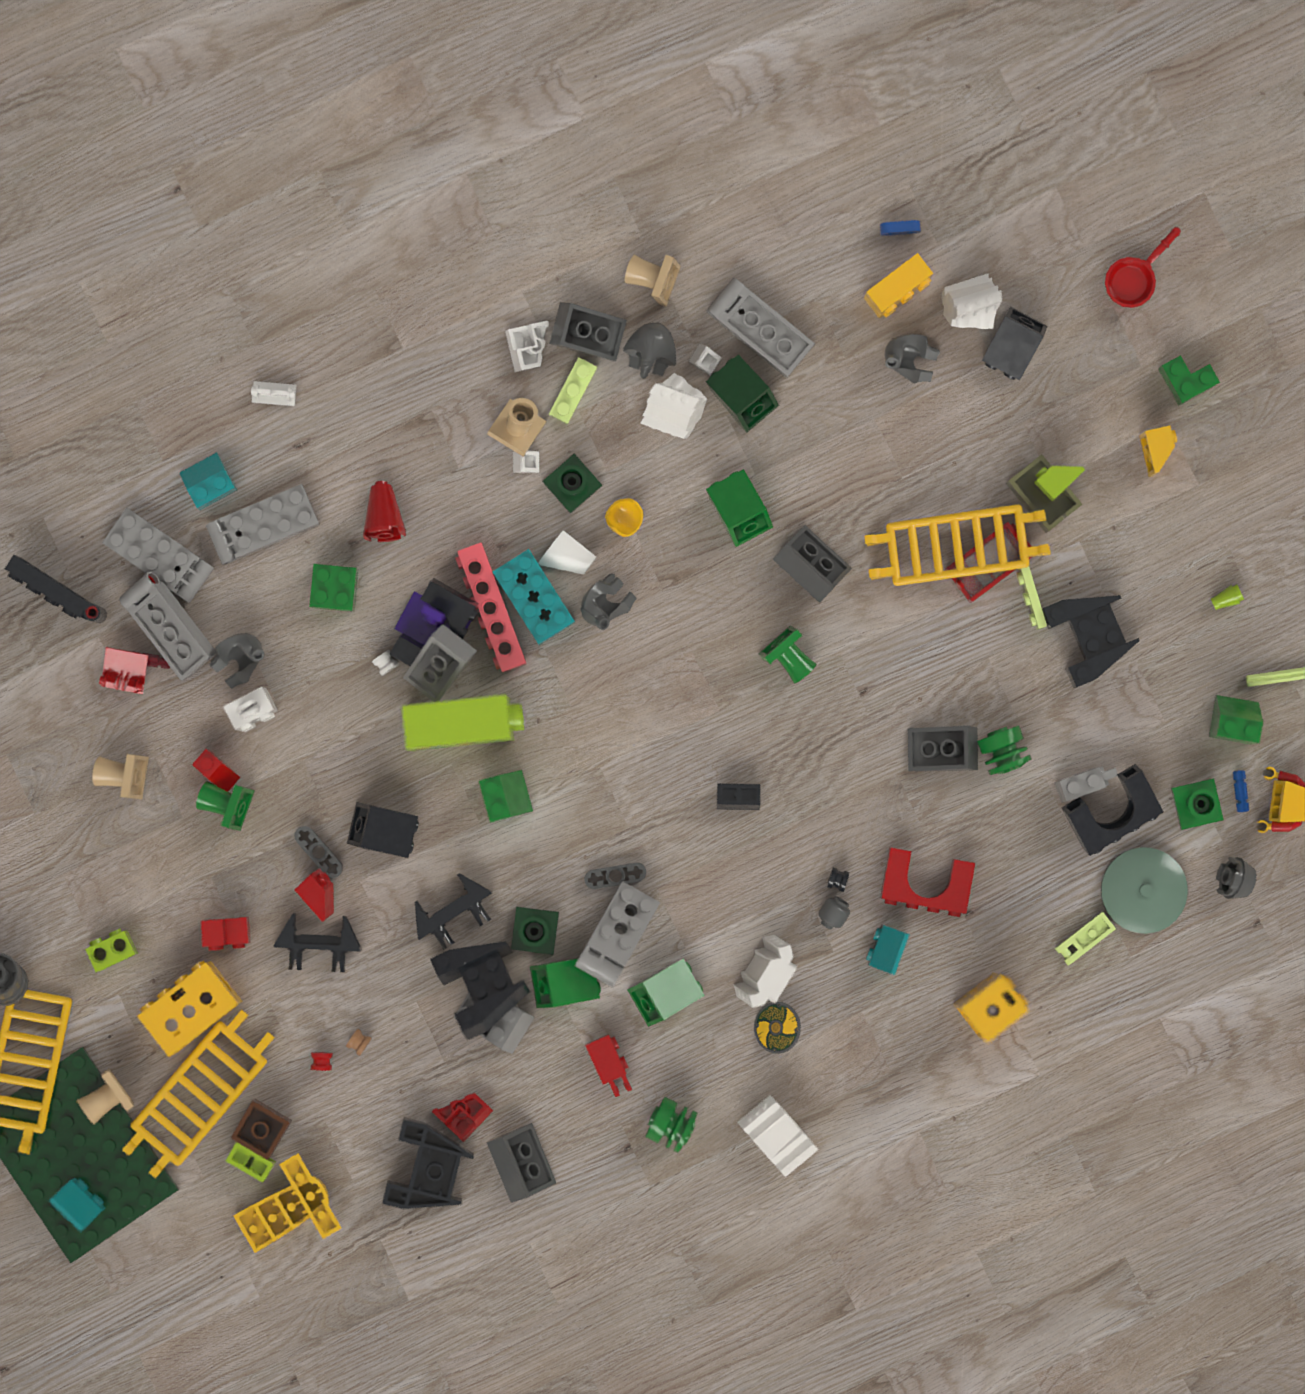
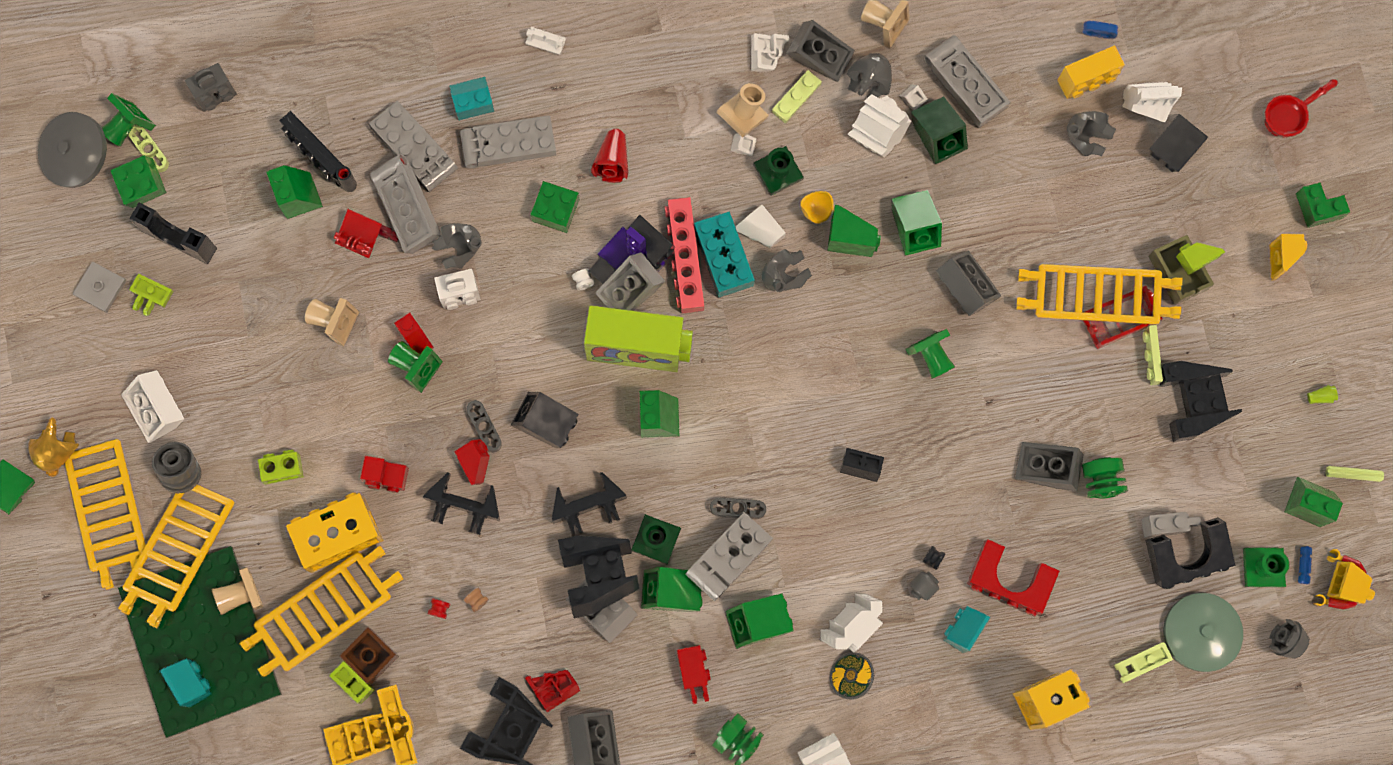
camera: 10 degrees right, 10 degrees down
(41, 640) = (294, 190): none -> green slope
(669, 541) = (852, 234): none -> green slope

